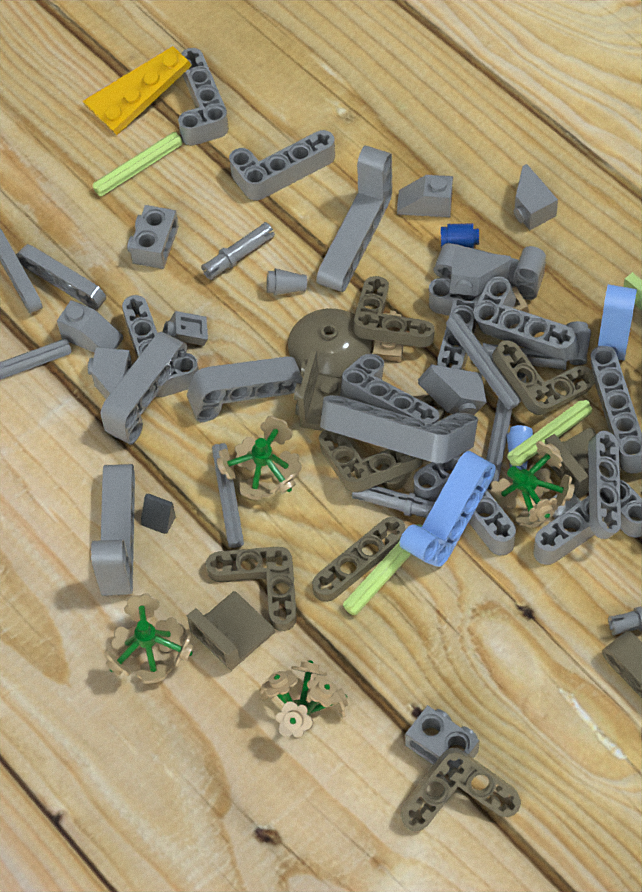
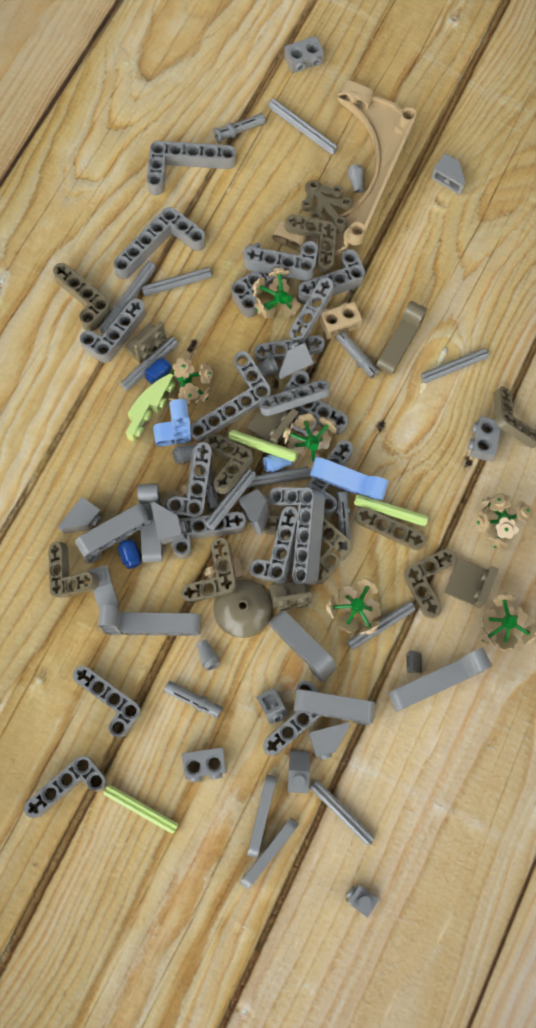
camera: 120 degrees left, 15 degrees up
(132, 93) = (82, 843): yellow wing -> none
(445, 156) = (59, 551): none -> dark tan beam
(488, 201) = (111, 532): none -> light grey beam
(586, 754) = (454, 365): none -> light grey axle

